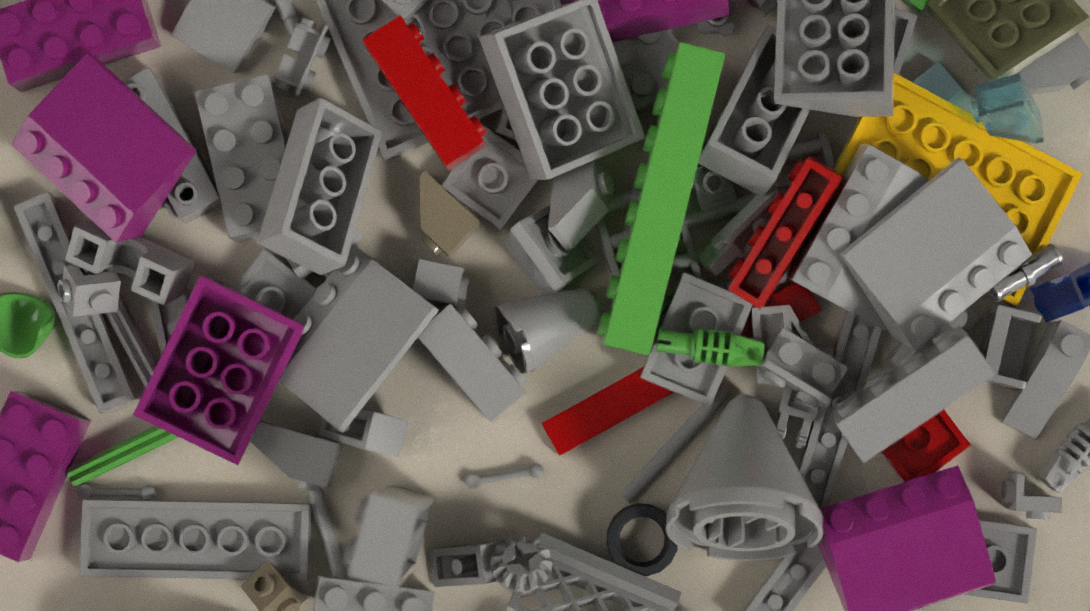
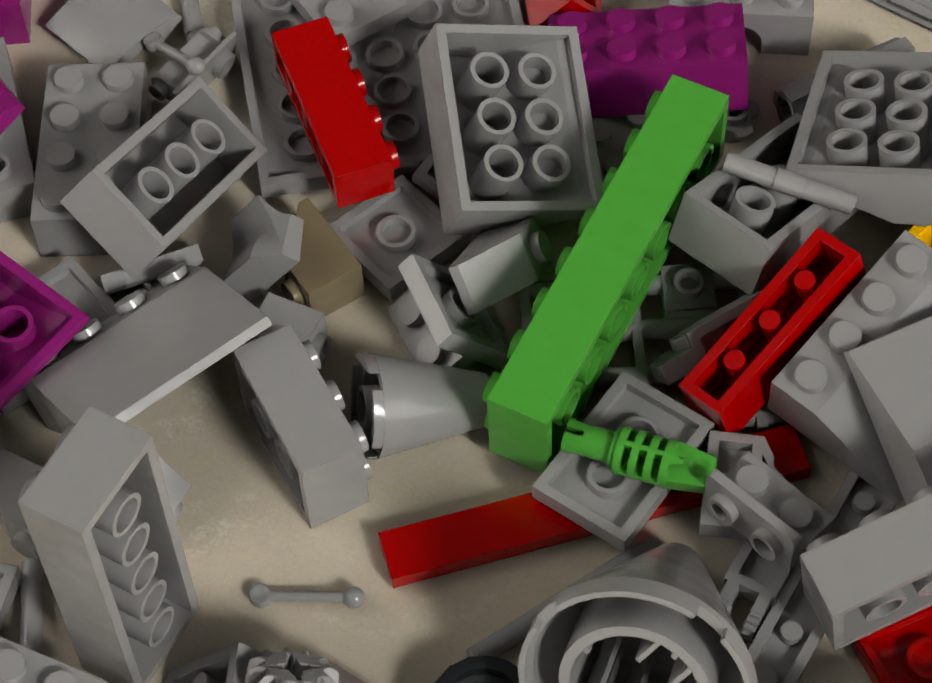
camera: 15 degrees right, 30 degrees down
(264, 40) = (154, 42): none -> light grey hinge
(404, 223) = (263, 247): none -> light grey slope
(778, 110) = (789, 183): none -> light grey piece

